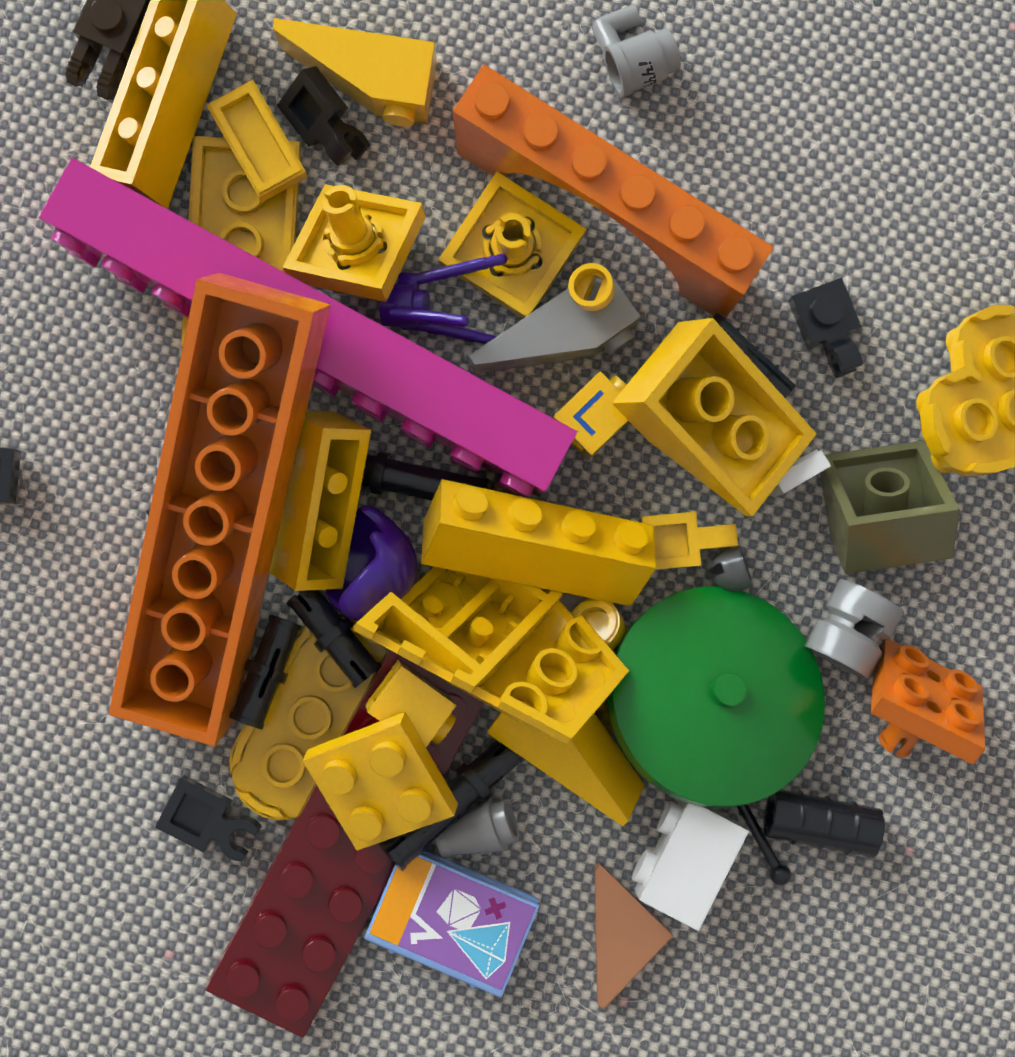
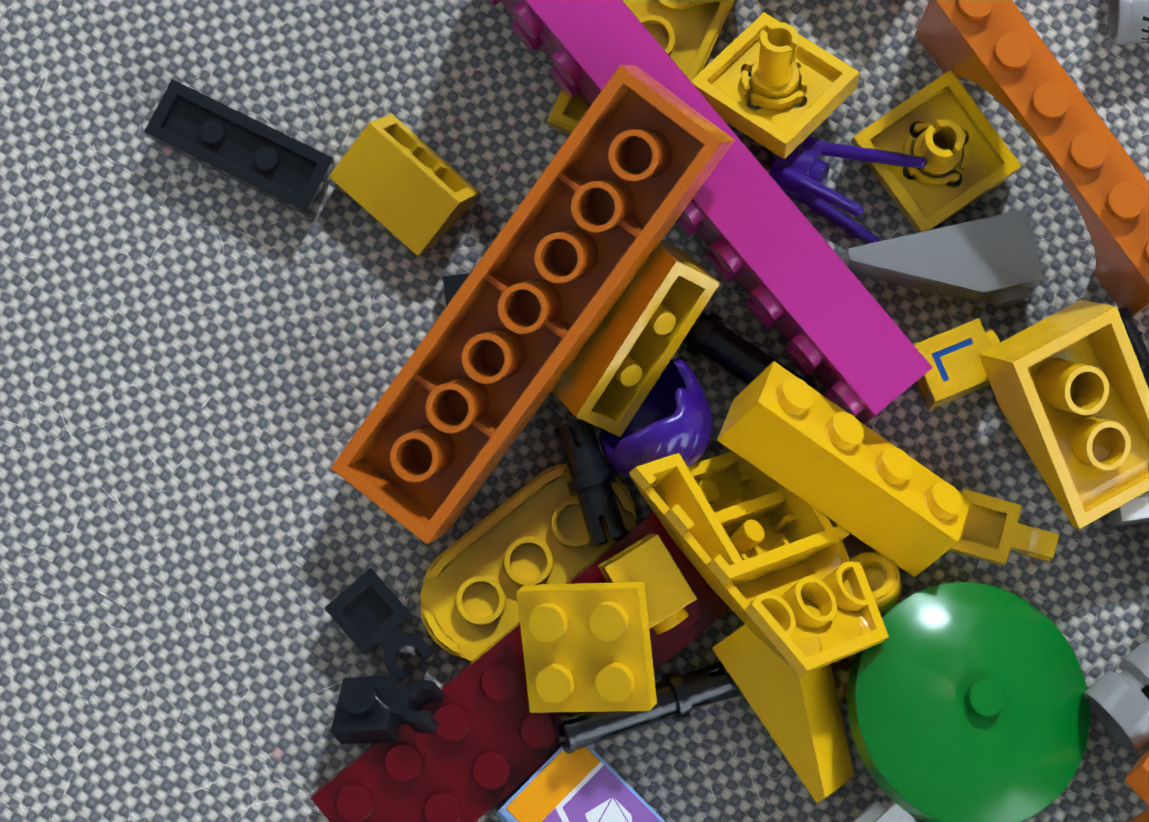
camera: 20 degrees right, 5 degrees down
(82, 445) = (403, 183): none -> yellow brick
(230, 892) = (377, 706): none -> black plate
(266, 672) = (505, 492): black pin -> none
(480, 830) = (662, 750): light grey cone -> none
(582, 283) = (996, 220): yellow hinge -> none
(732, 570) = (1035, 583): dark grey hinge -> none

